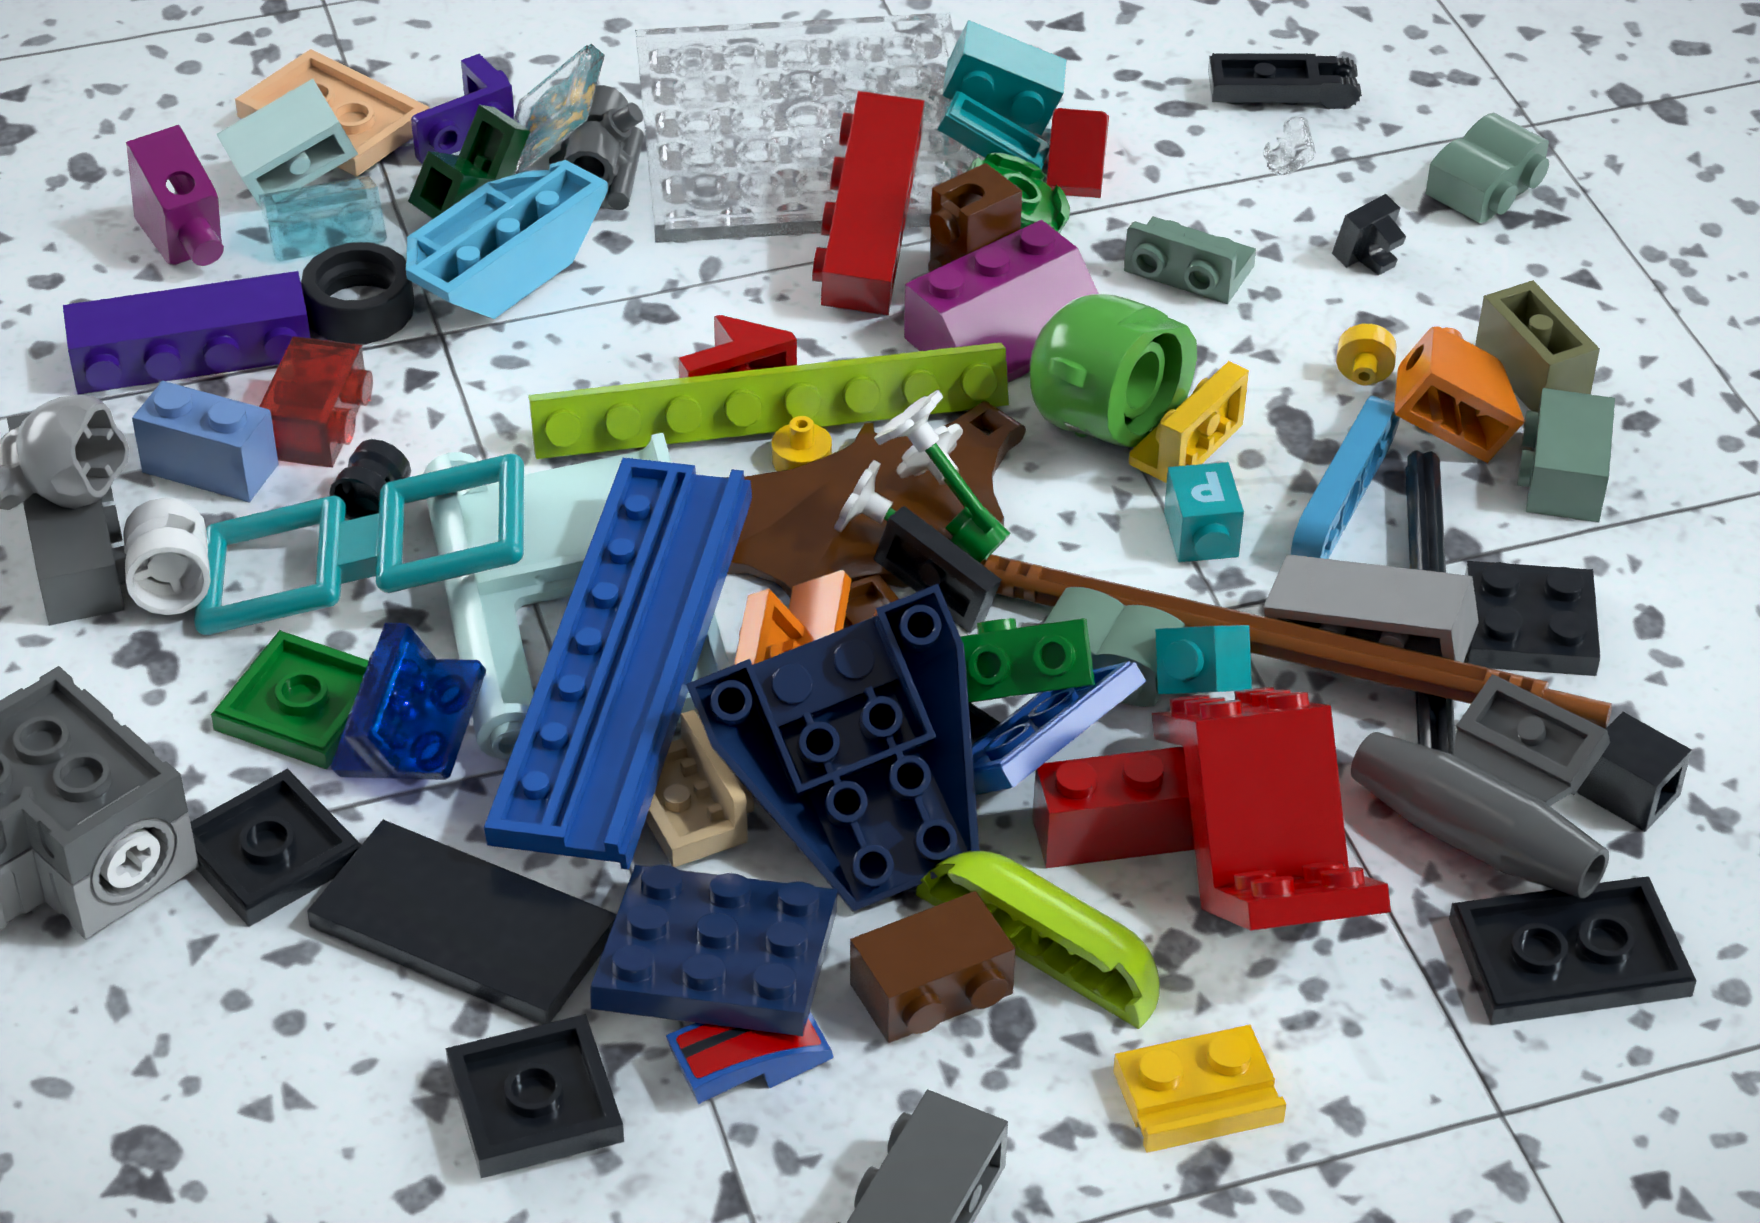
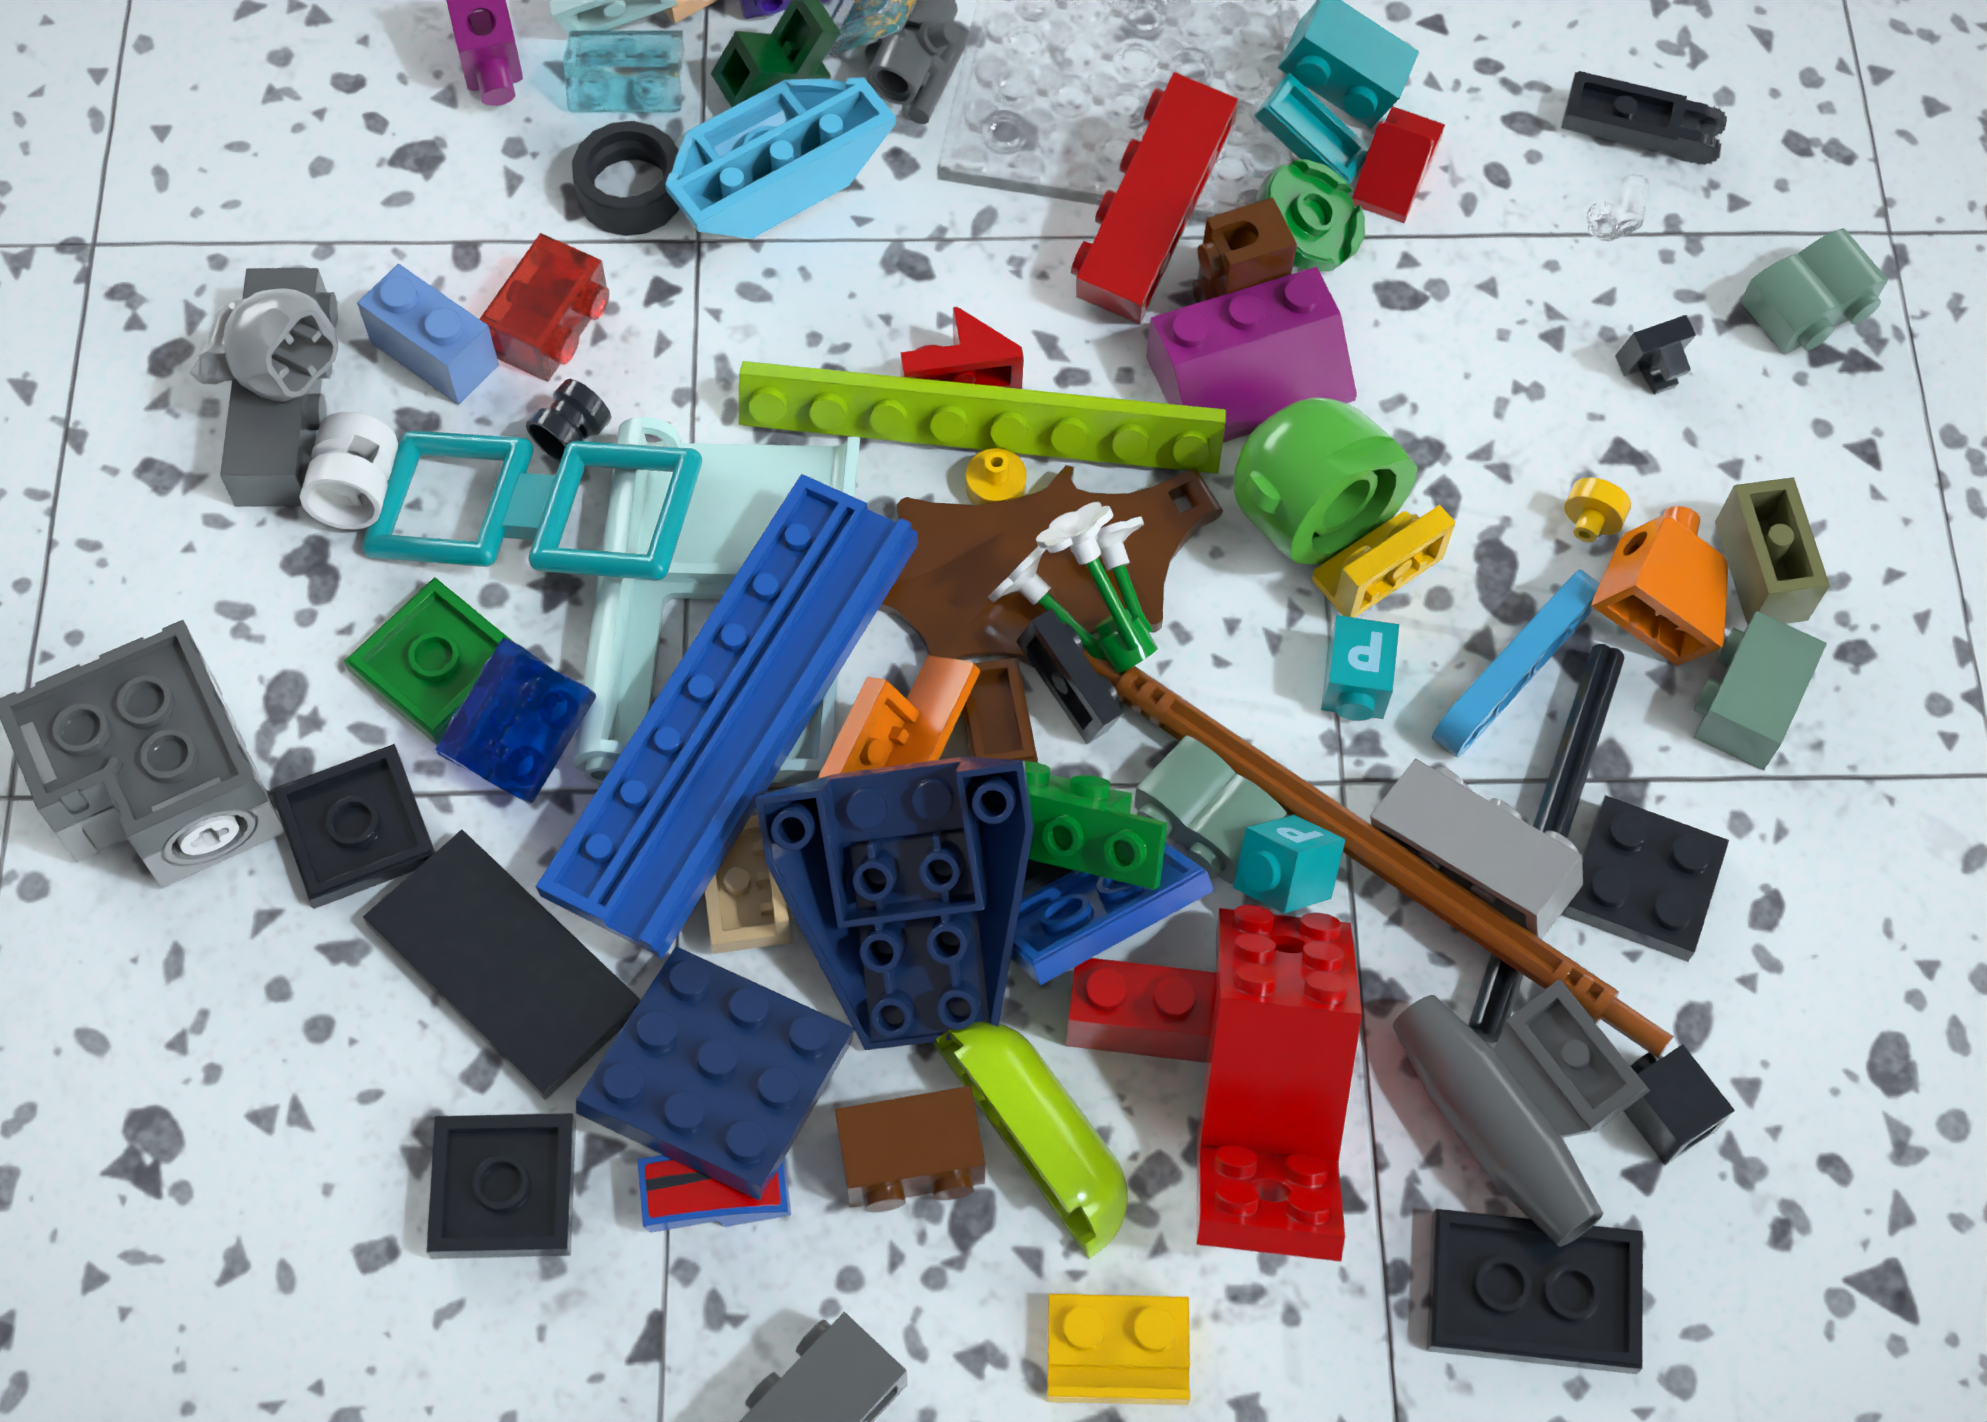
camera: 15 degrees right, 20 degrees up
(184, 331) = (451, 191): dark purple brick -> none
(1187, 258) = (1462, 331): sand green bracket -> none

